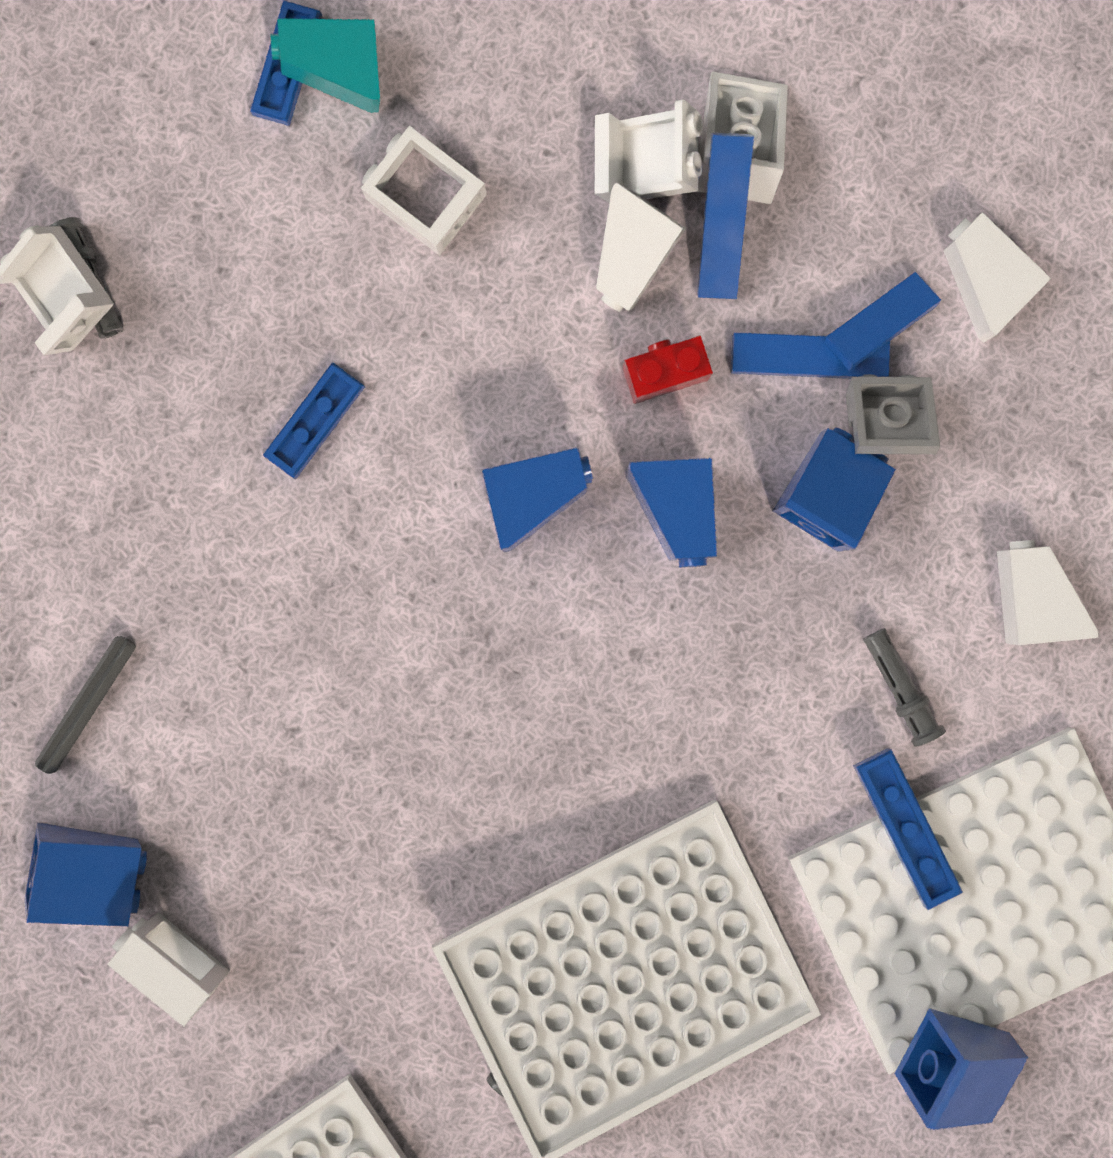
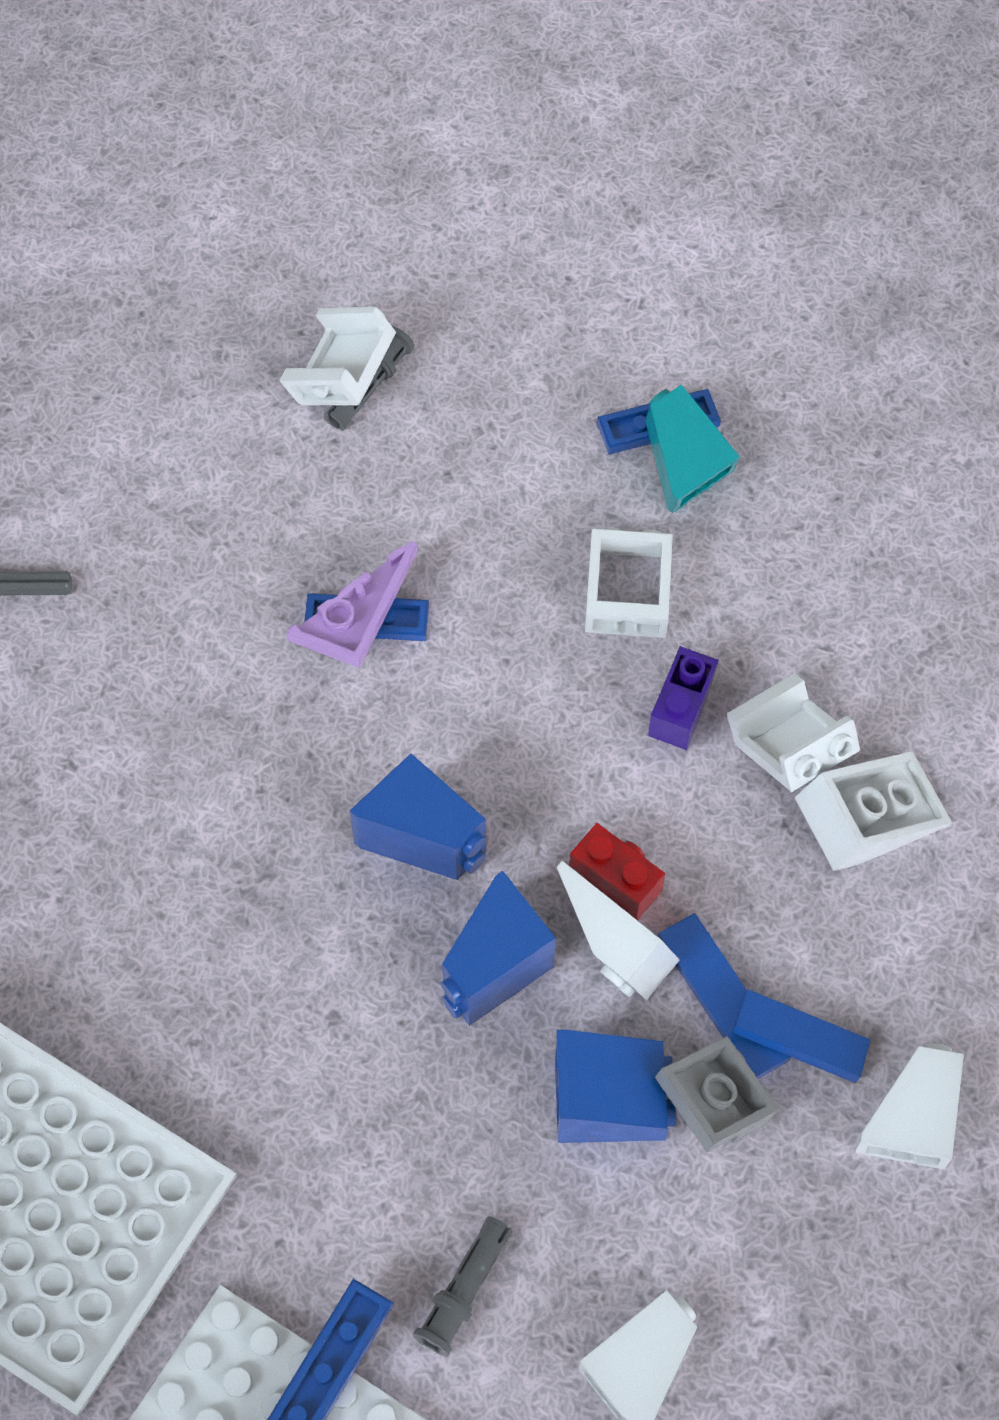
camera: 55 degrees right, 25 degrees down
(315, 438) = (351, 620): none -> lavender wing
(556, 217) = (682, 698): none -> dark purple slope
(633, 248) = (703, 773): white slope -> none
(725, 215) = (785, 828): blue tile -> none
(730, 407) = (630, 952): none -> white slope

